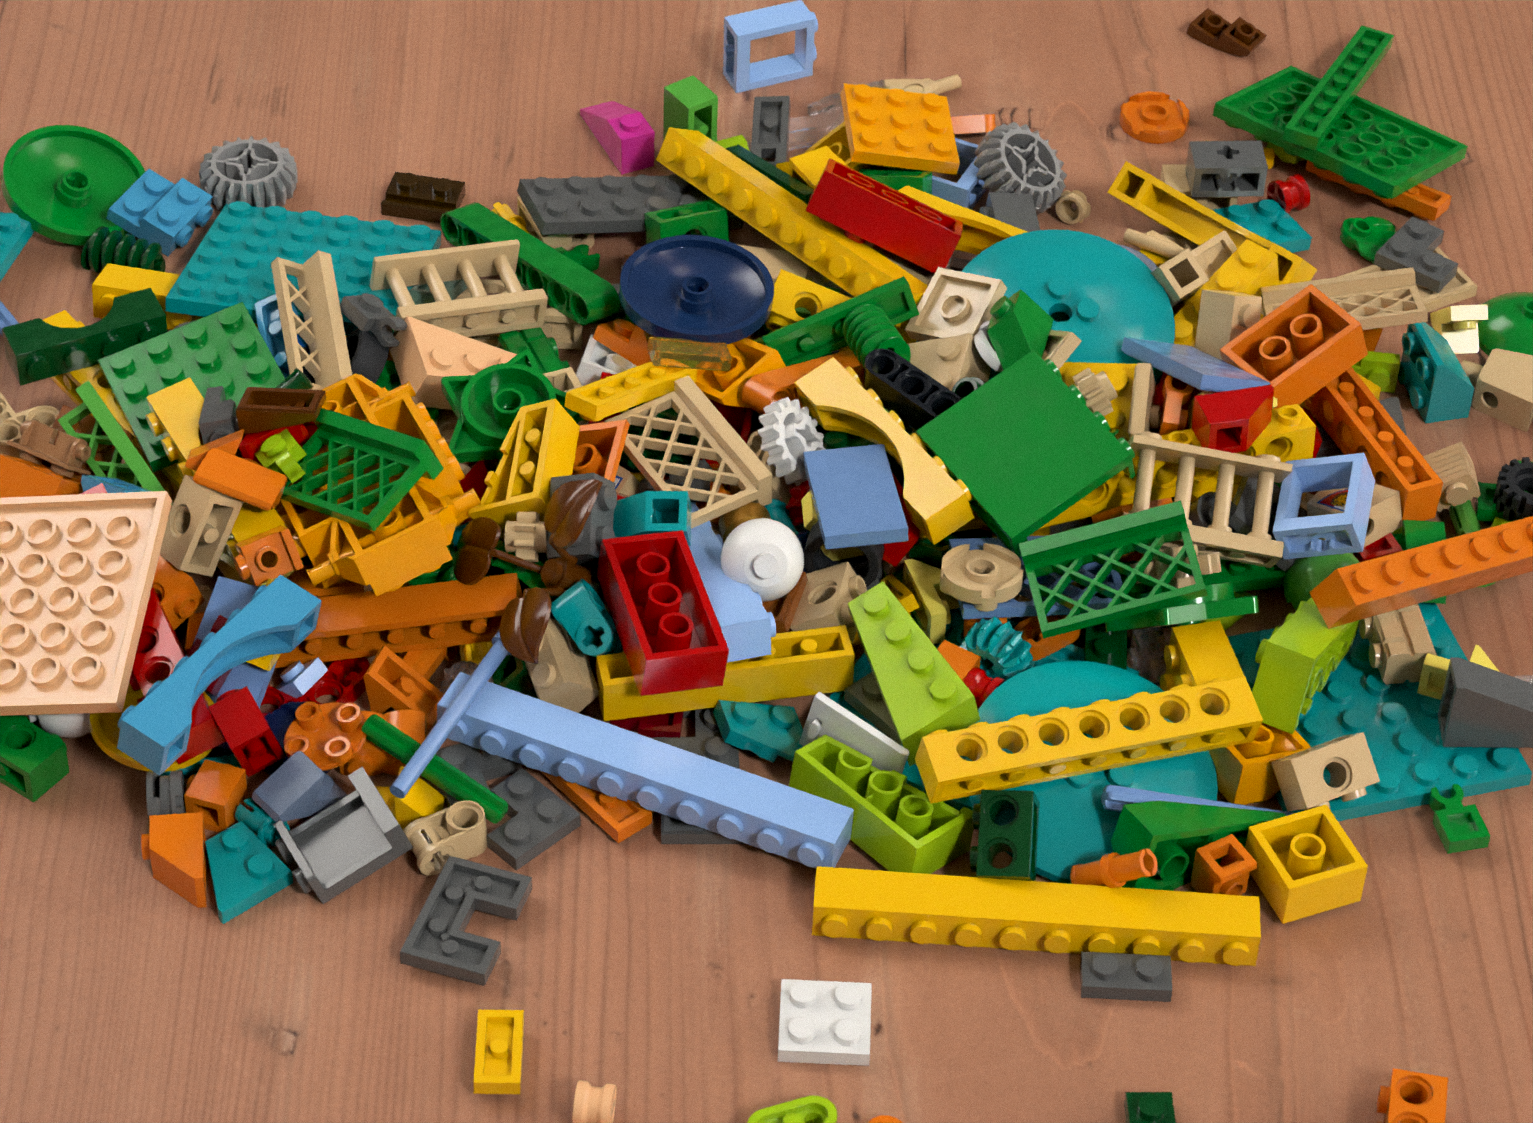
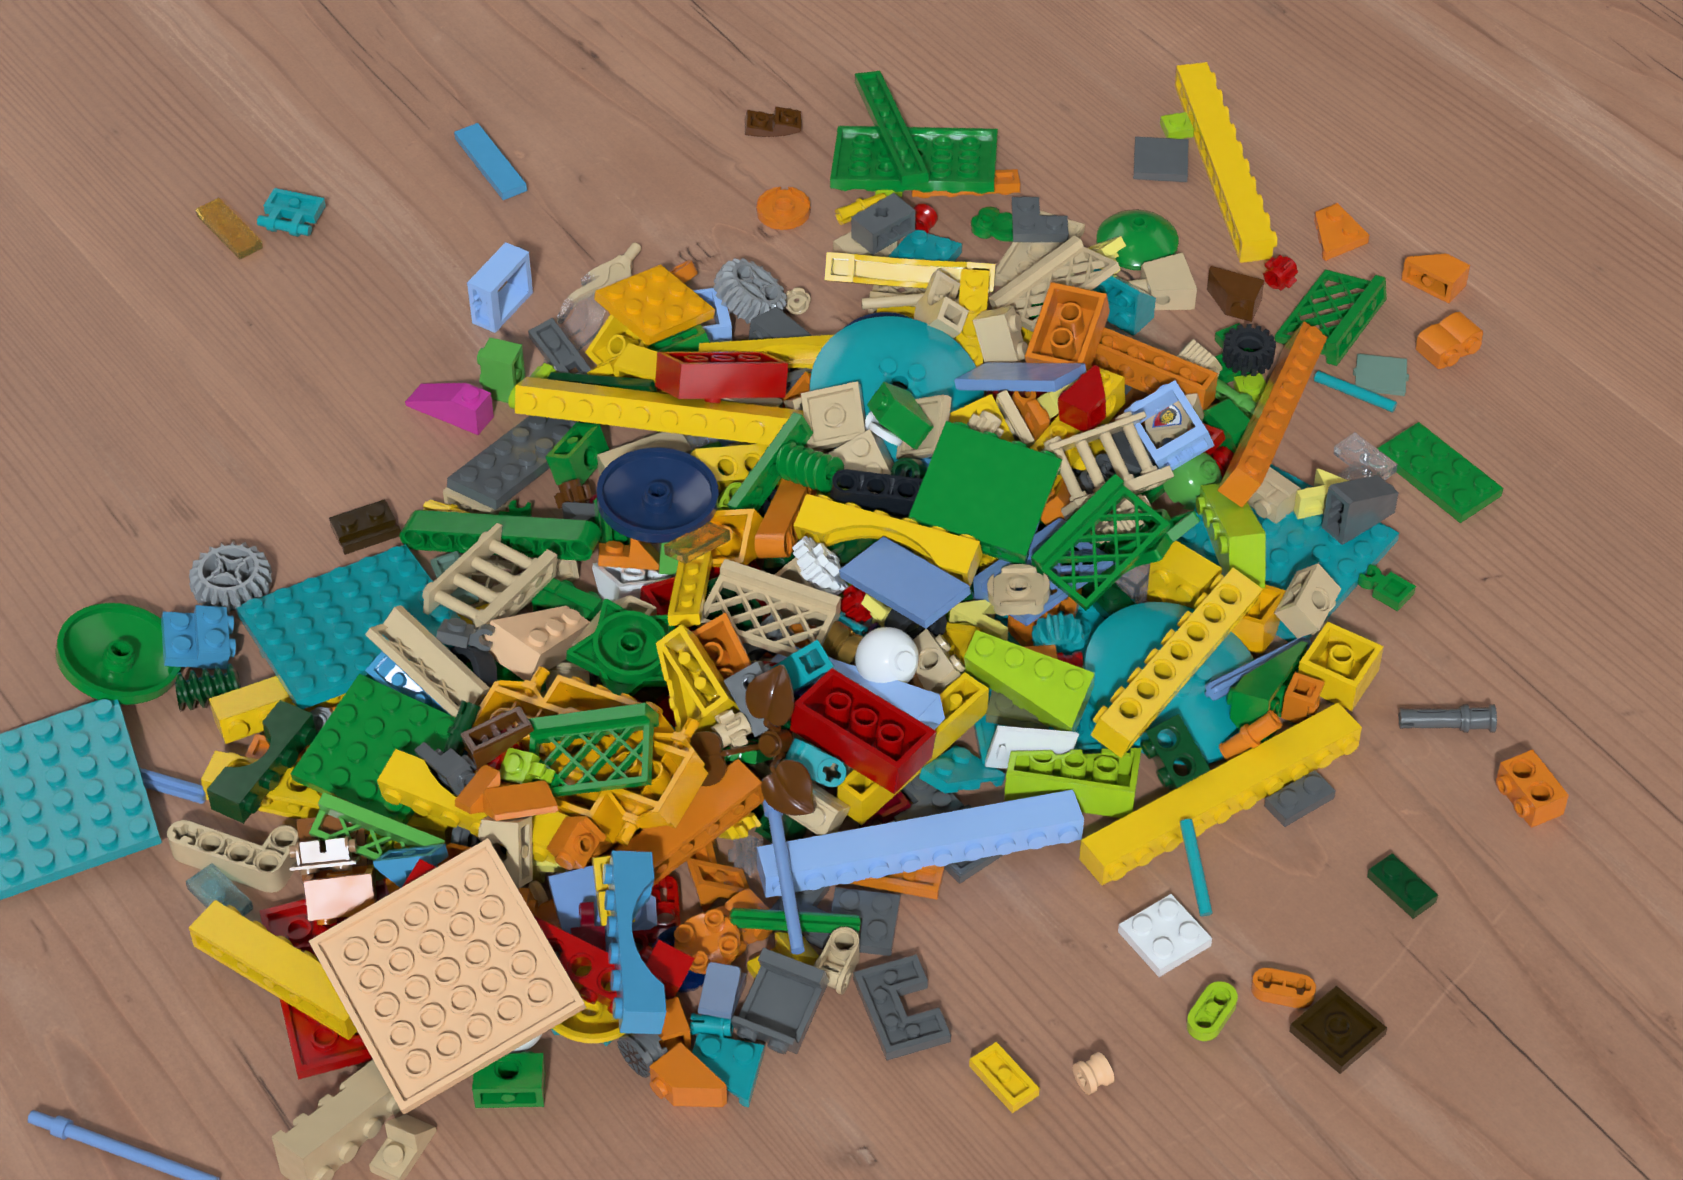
camera: 35 degrees left, 5 degrees up
(921, 971) = (1196, 867): none -> teal bar
(1406, 1003) = (1462, 718): none -> dark grey pin

